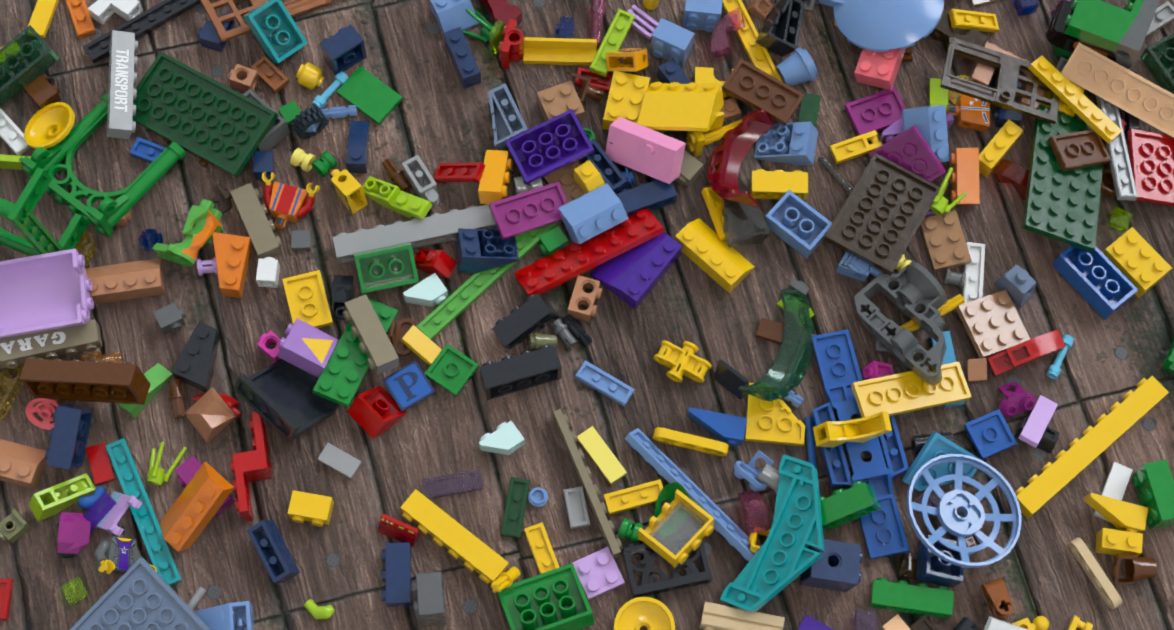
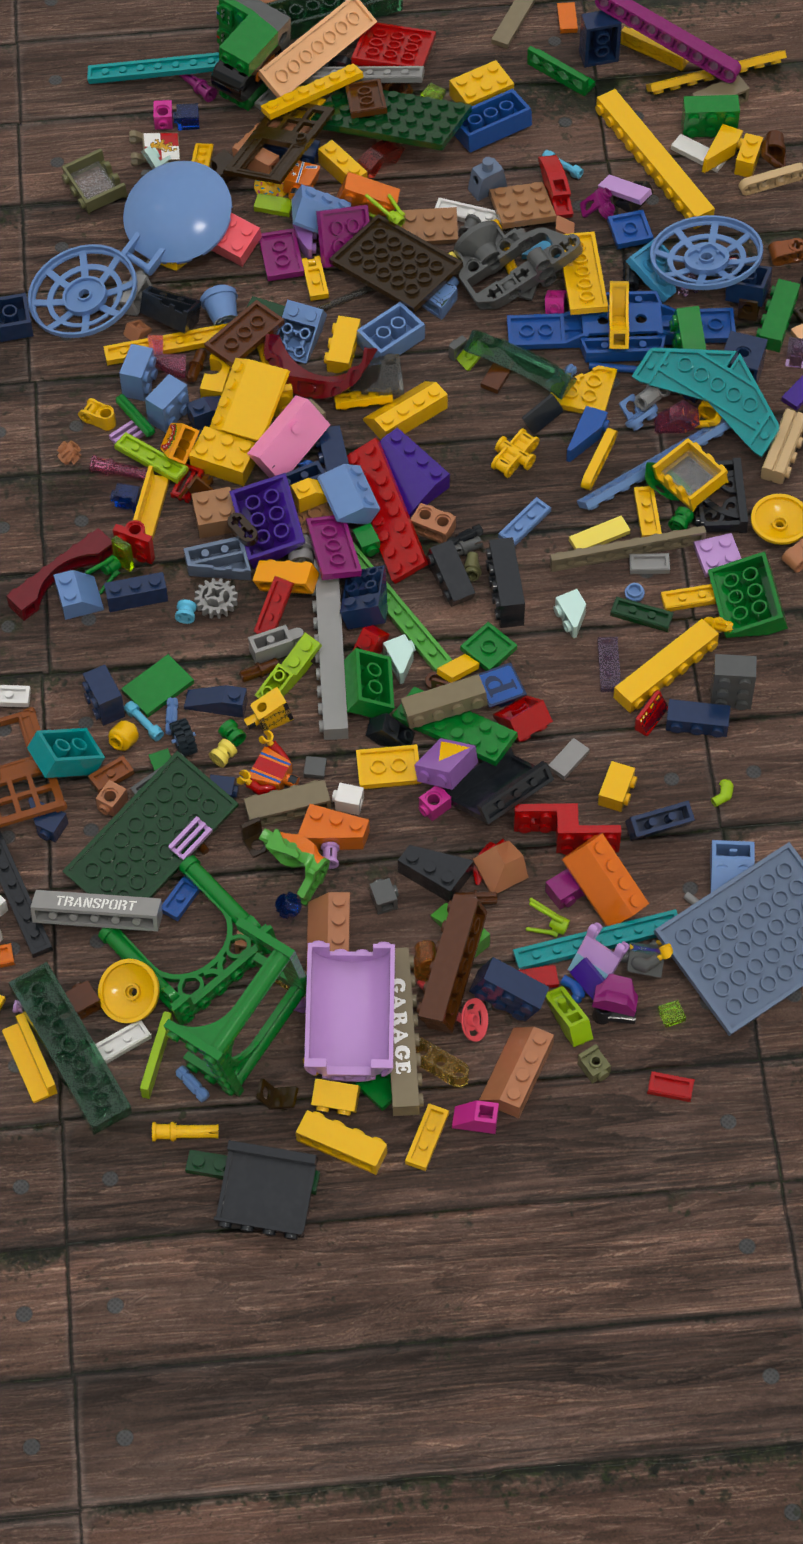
camera: 75 degrees left, 10 degrees down
(184, 136) = (184, 833): none -> lavender tile
(449, 102) = (185, 611): none -> medium azure wheel
(468, 131) = (216, 599): none -> light grey gear
(532, 128) = (239, 532): none -> dark brown beam
(651, 25) = (135, 415): none -> green axle
(723, 61) = (196, 365): none -> reddish brown axle

